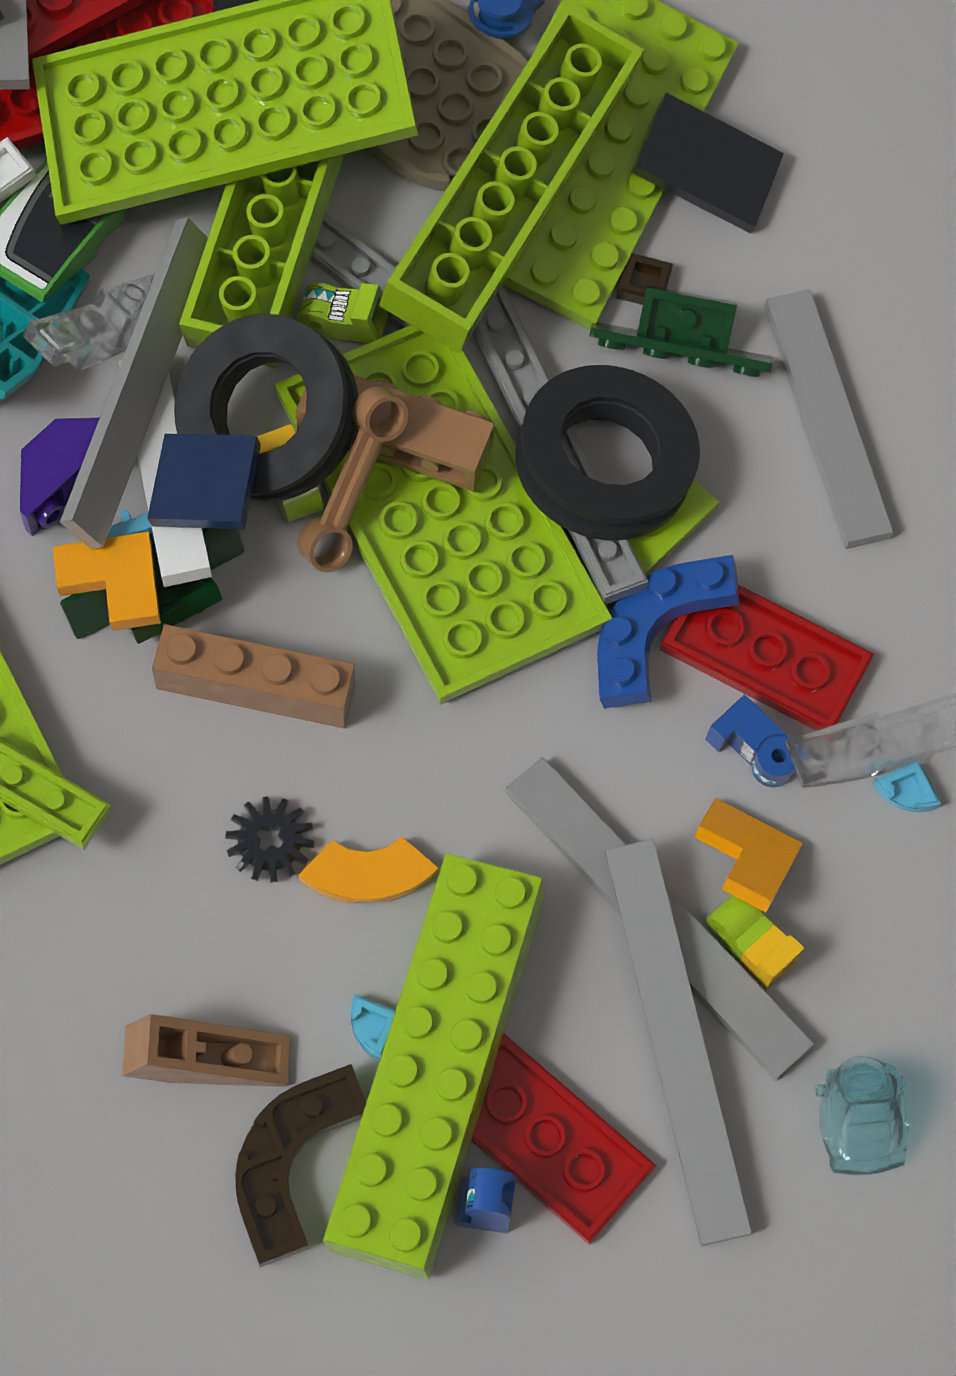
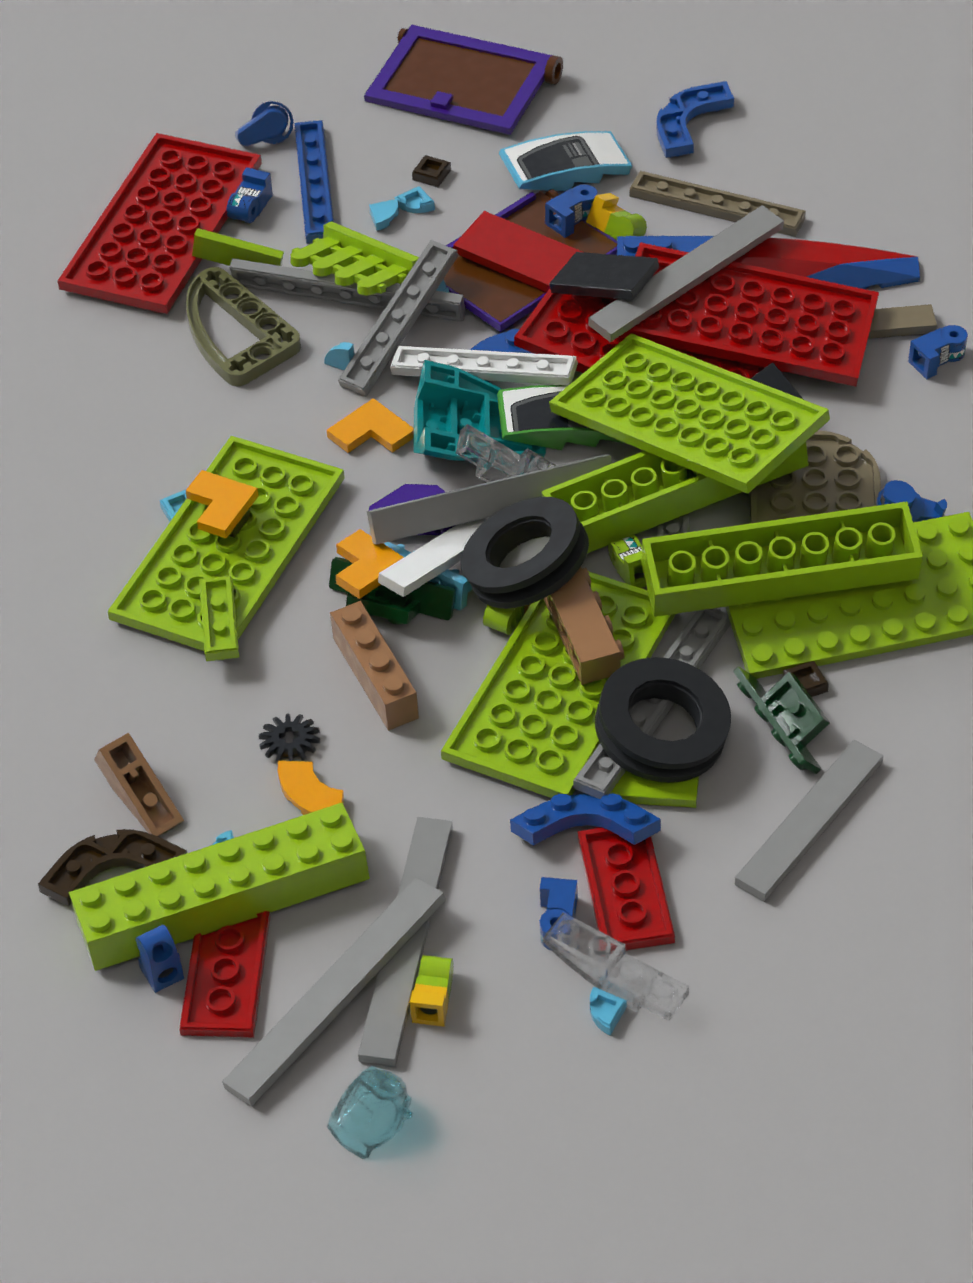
camera: 60 degrees right, 20 degrees down
(204, 481) = (452, 553): dark blue tile -> none
(352, 479) = (523, 618): medium nougat piece -> none
(707, 162) = (909, 653): black tile -> none
(760, 852) = (486, 955): light orange tile -> none

